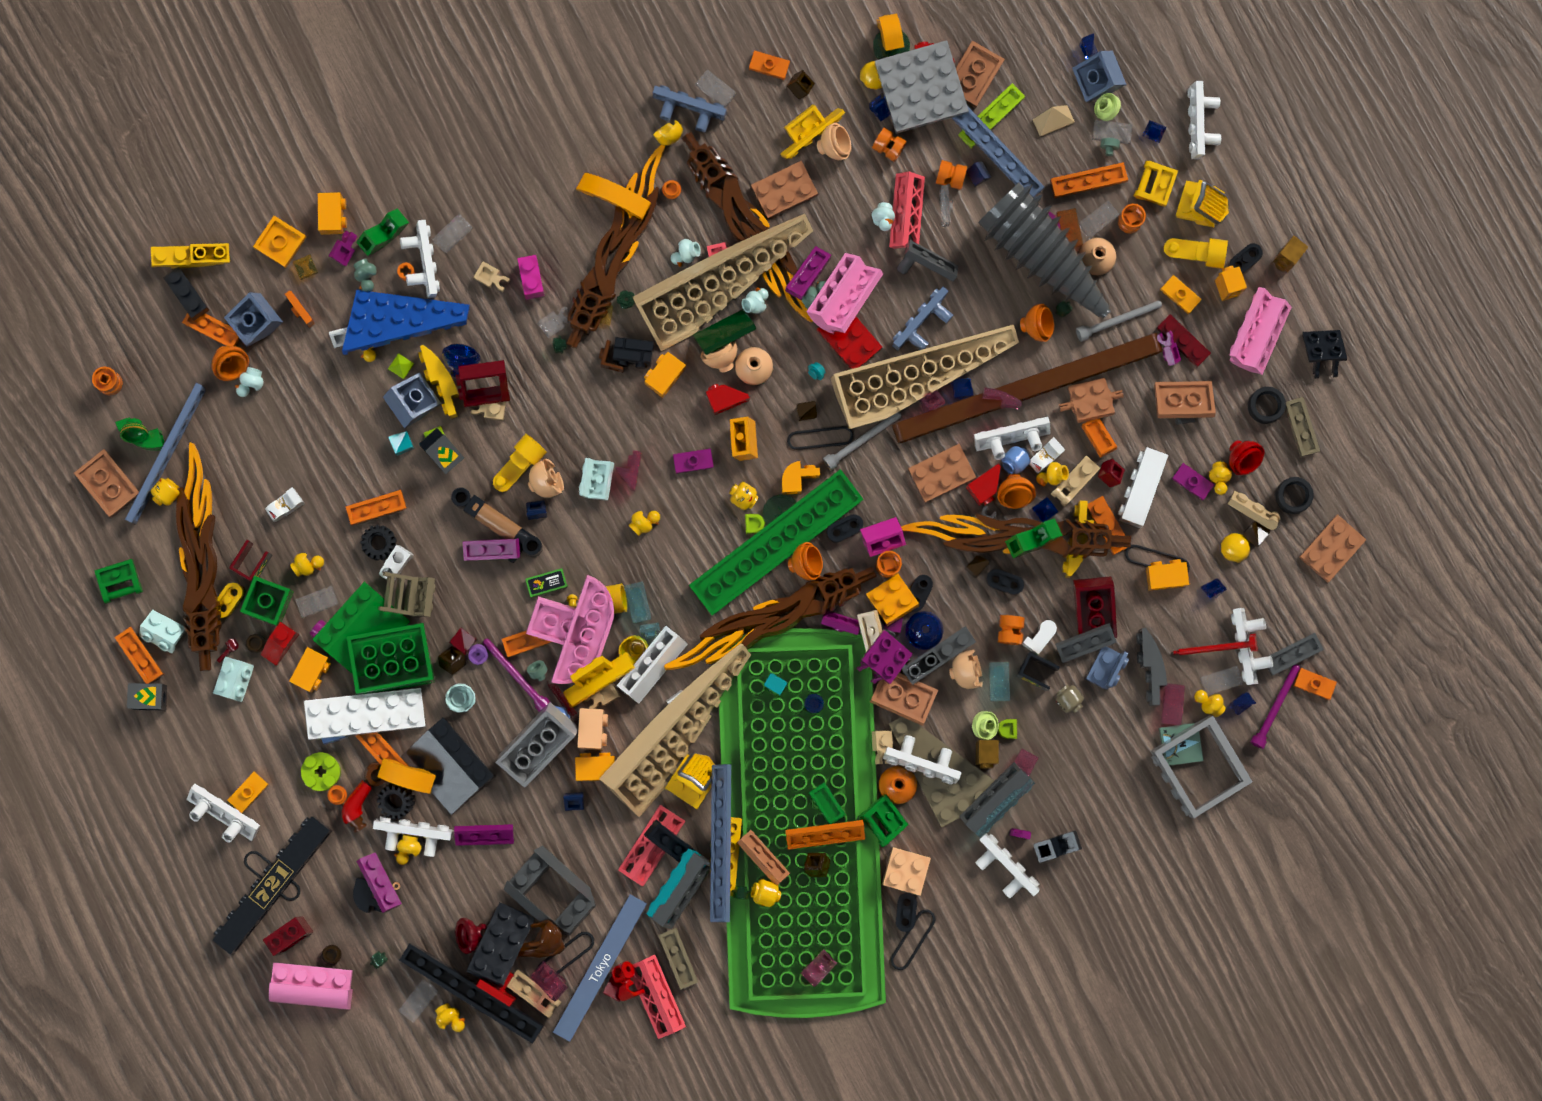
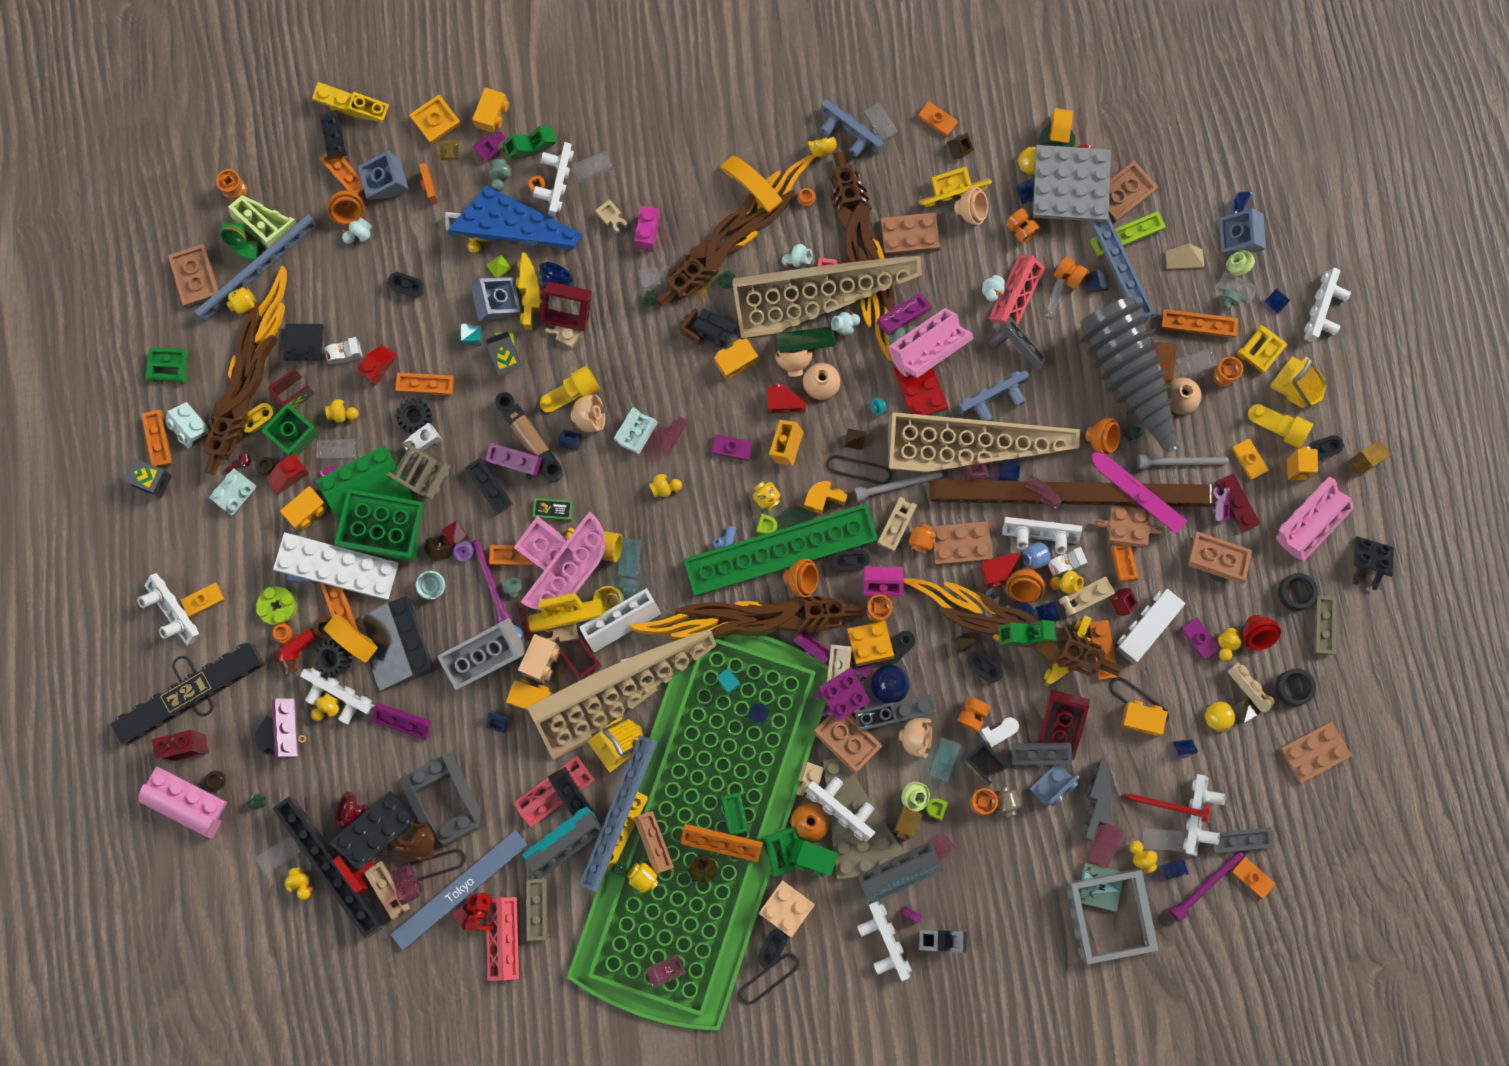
camera: 30 degrees right, 5 degrees down
(152, 408) = (260, 222): none -> yellowish green wedge
(241, 510) = (303, 342): none -> black plate
(319, 417) = (407, 284): none -> black plate
(321, 505) = (376, 364): none -> red slope
(477, 583) = (488, 486): none -> black plate
(635, 731) = (589, 671): none -> dark red piece
(721, 552) = (727, 539): none -> medium blue arm
(875, 478) = (896, 525): none -> tan plate
(904, 482) = (922, 538): none -> orange head
(913, 816) = (813, 857): none -> green brick
(1023, 513) = (1026, 607): none -> clear blue plate
(1048, 707) = (983, 802): none -> orange wheel
(1089, 365) = (1138, 492): none -> dark pink piece

